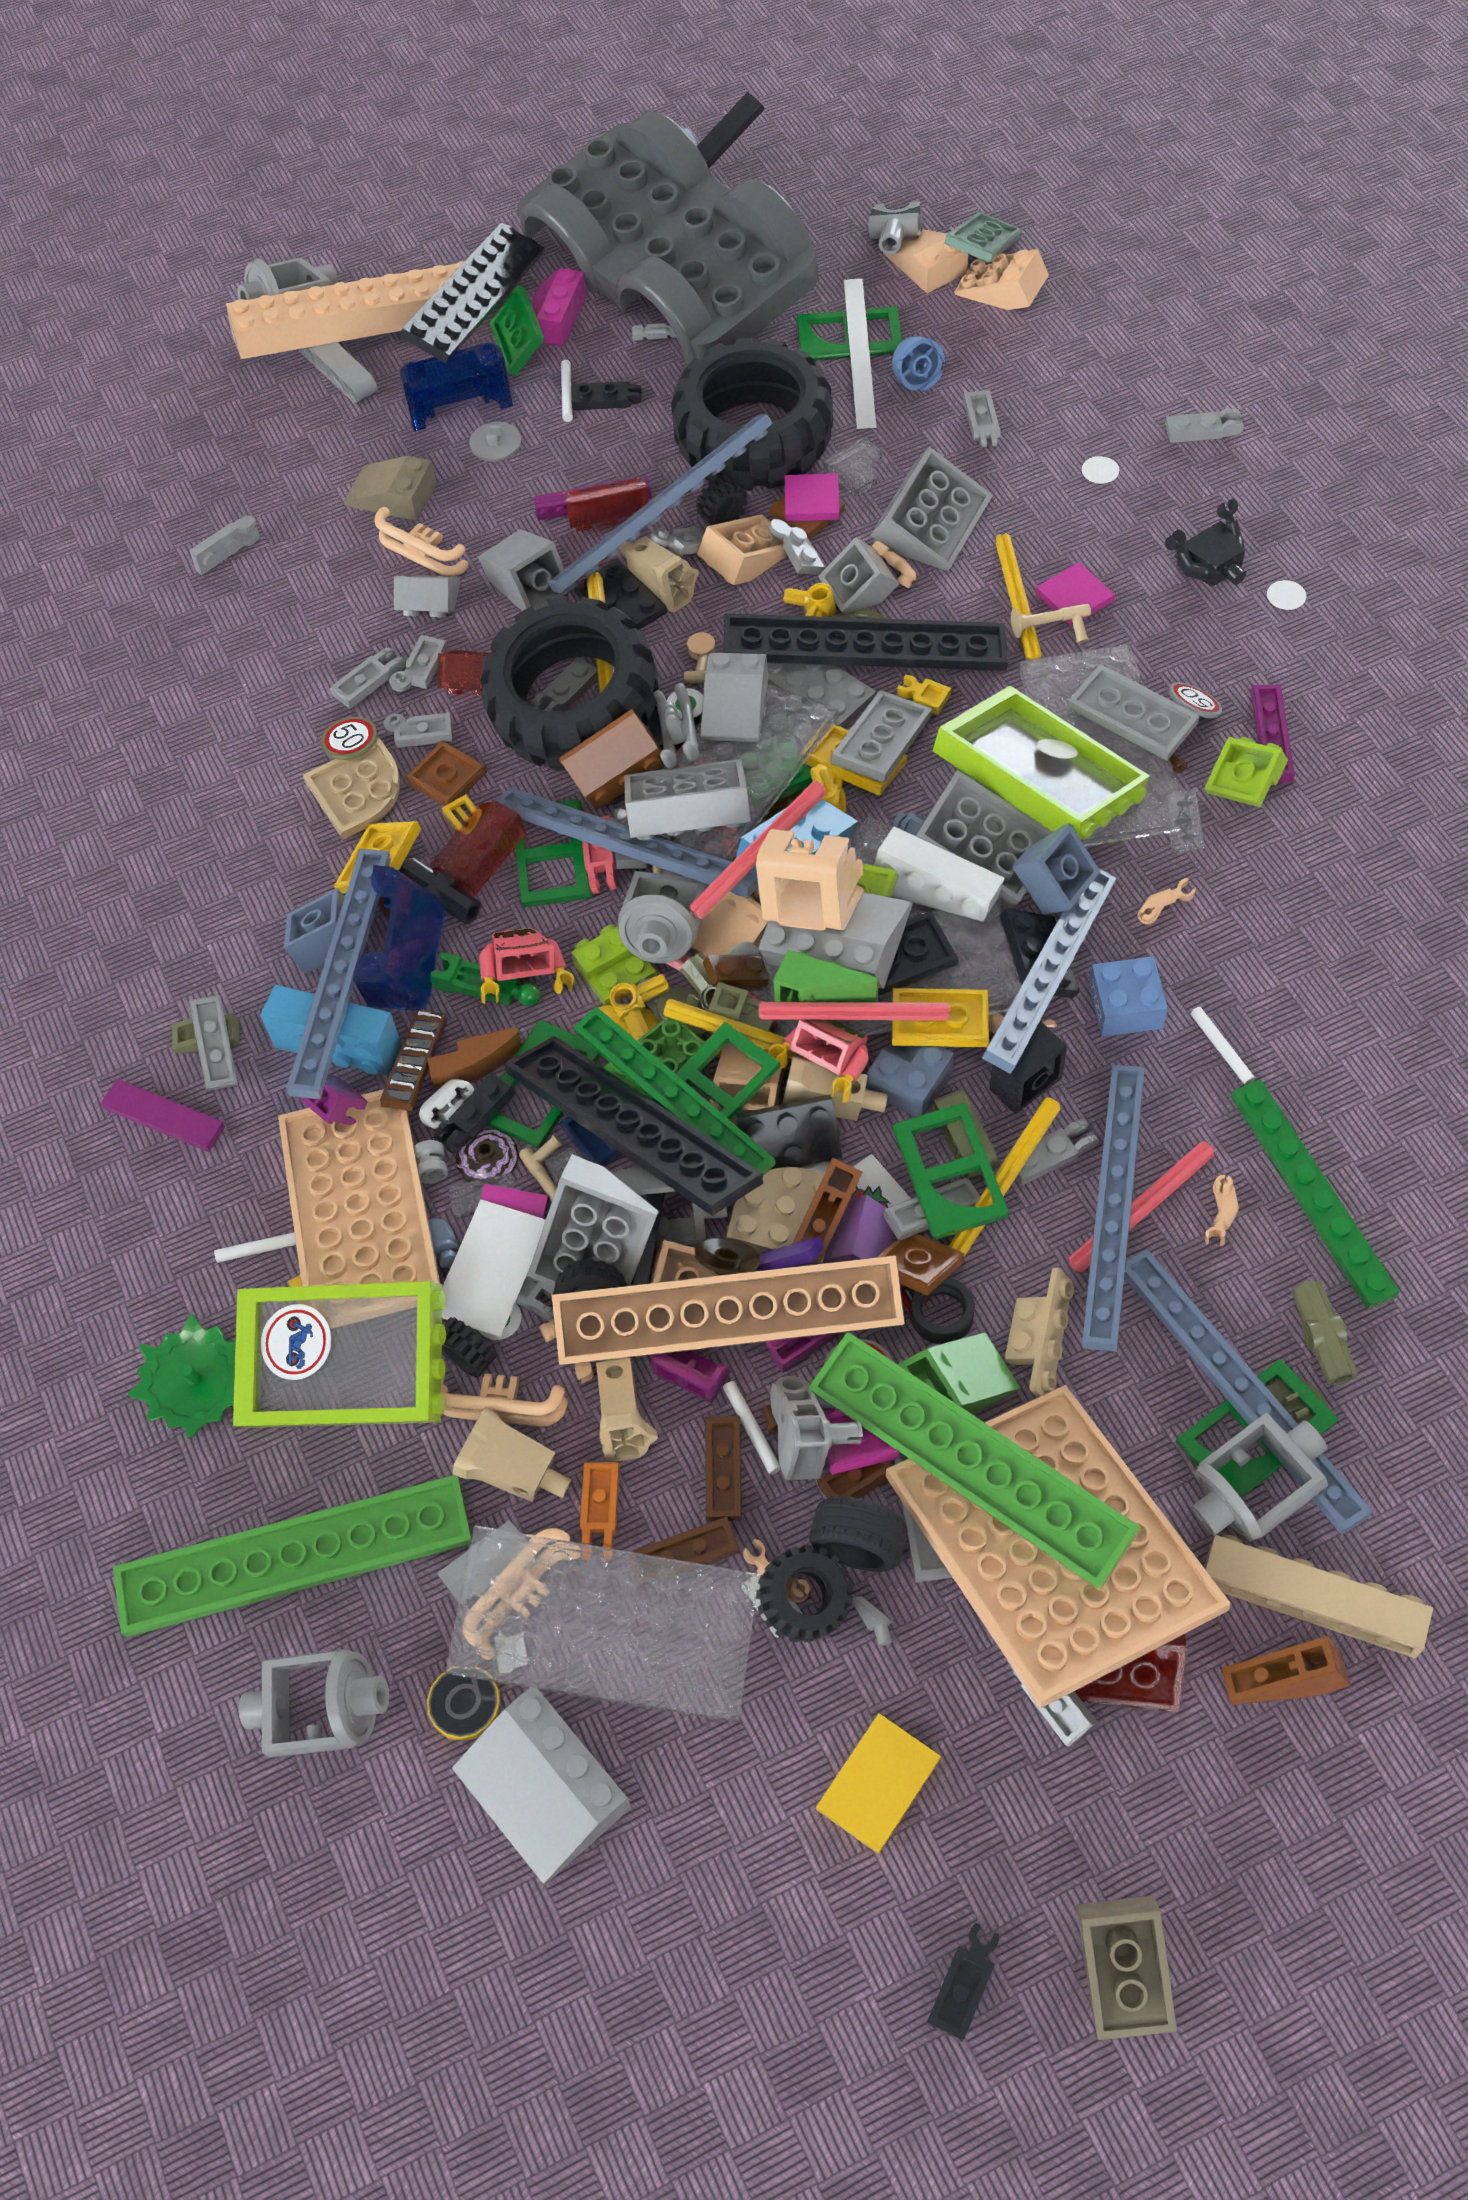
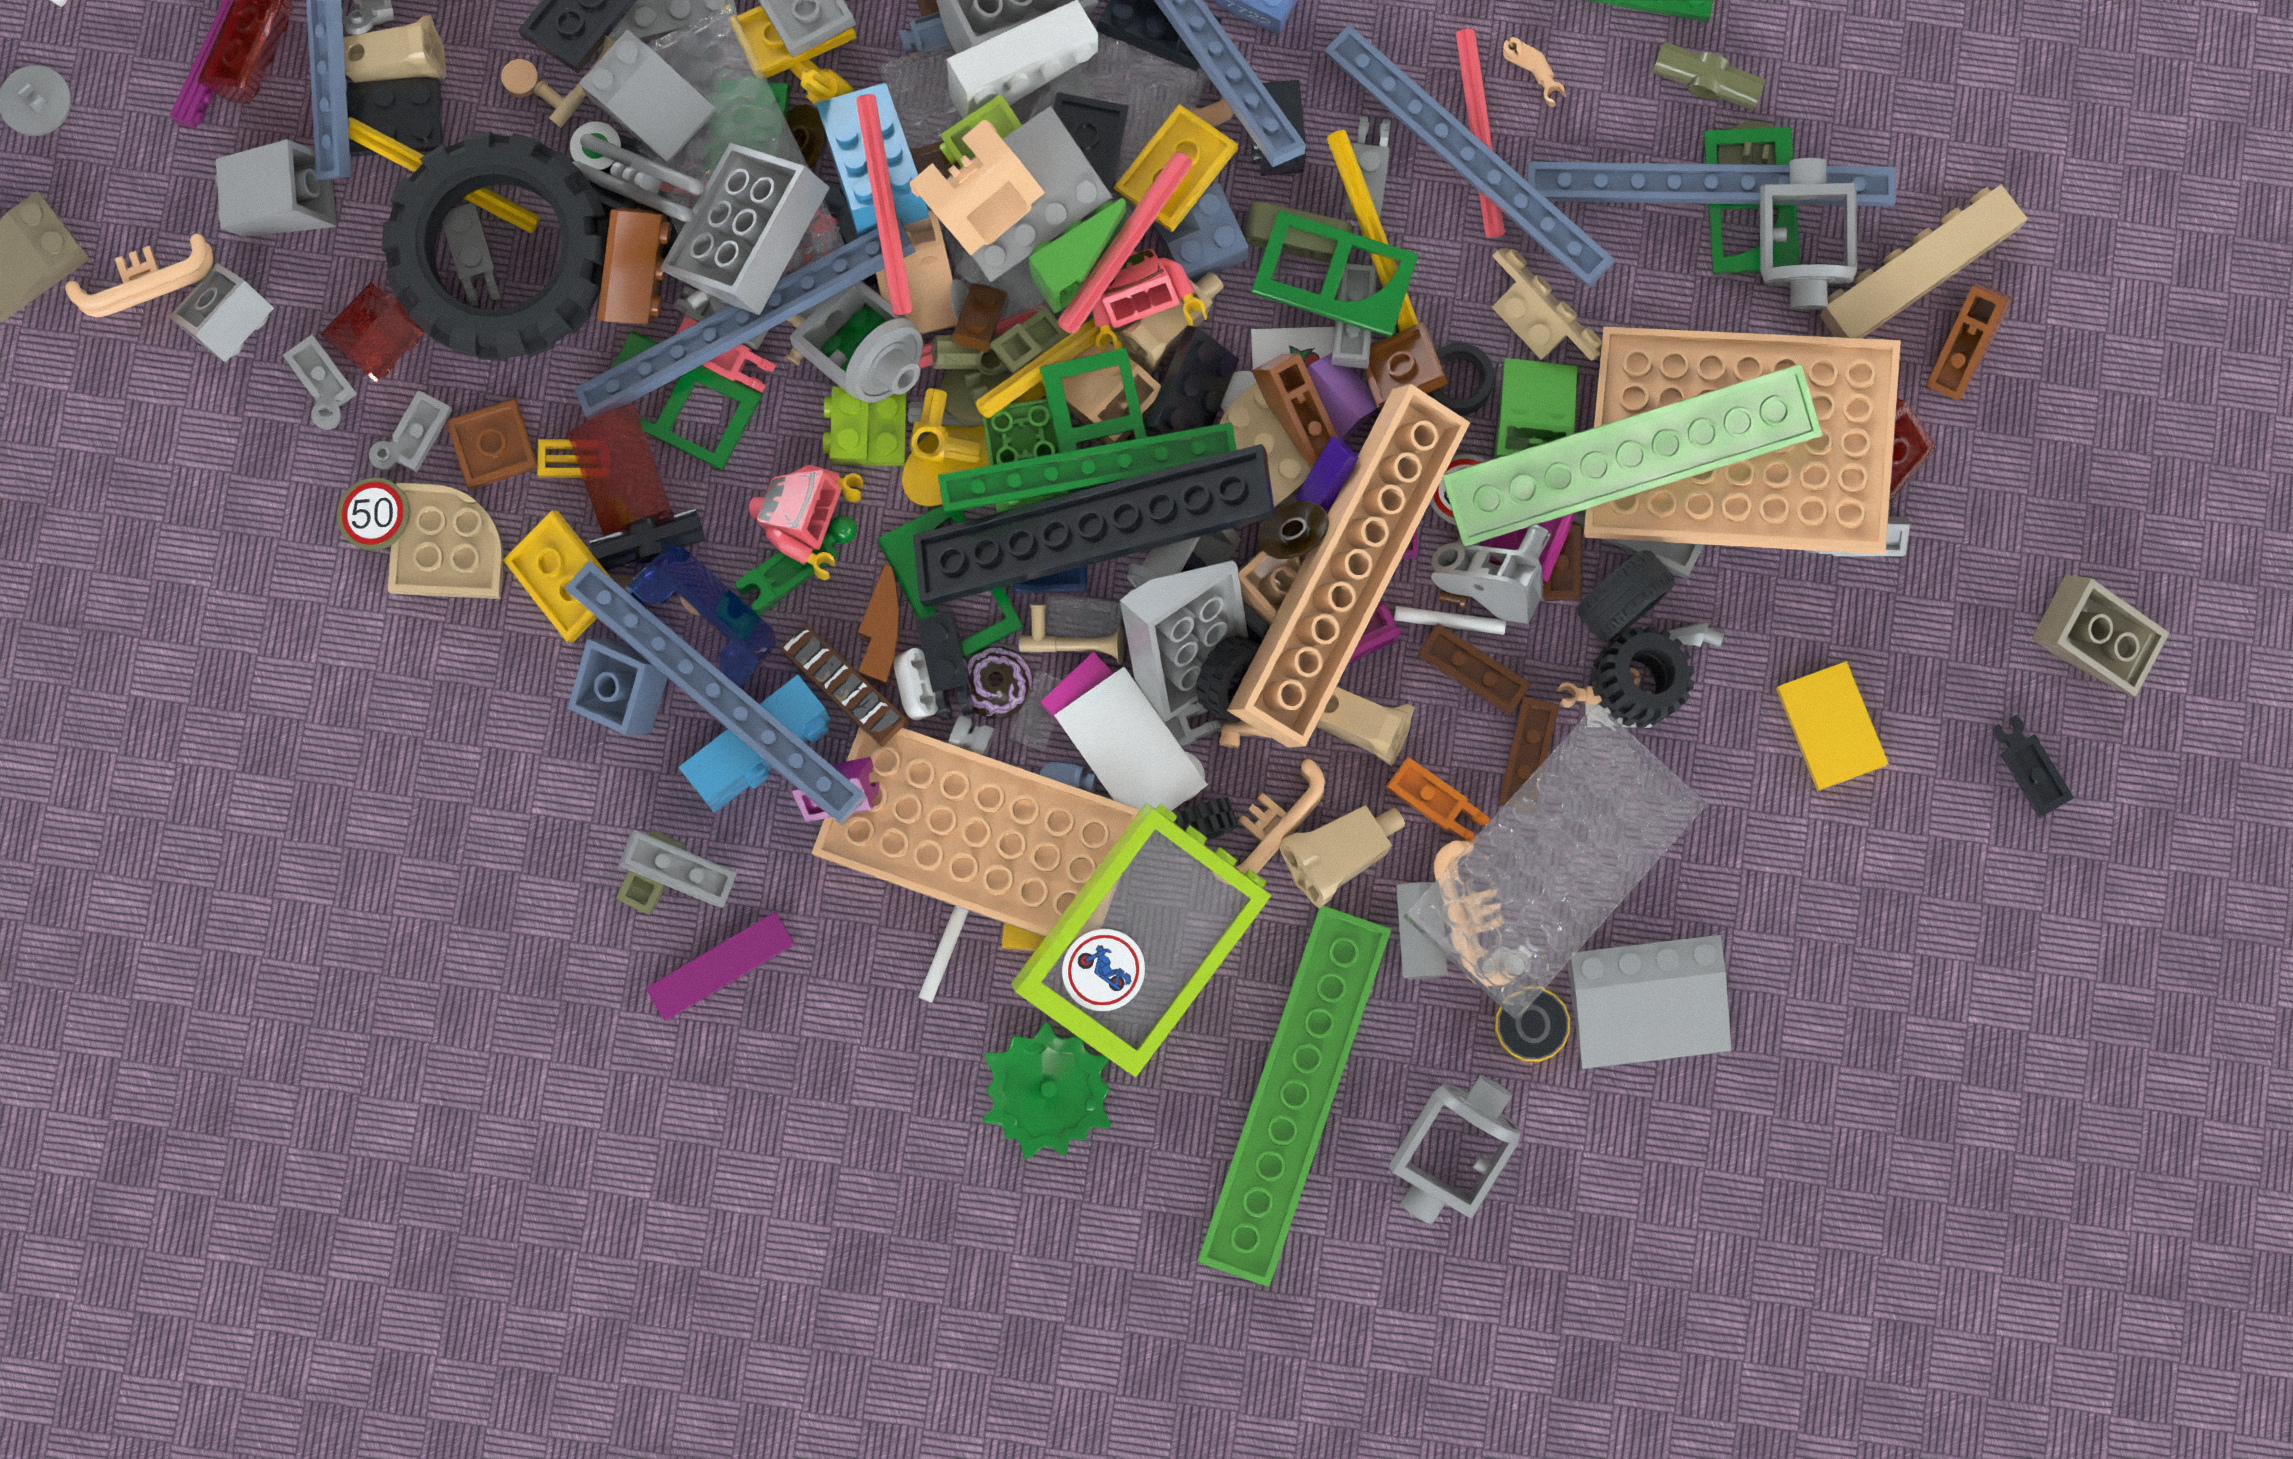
camera: 60 degrees left, 20 degrees up
(367, 677) = (296, 448): light grey hinge -> none

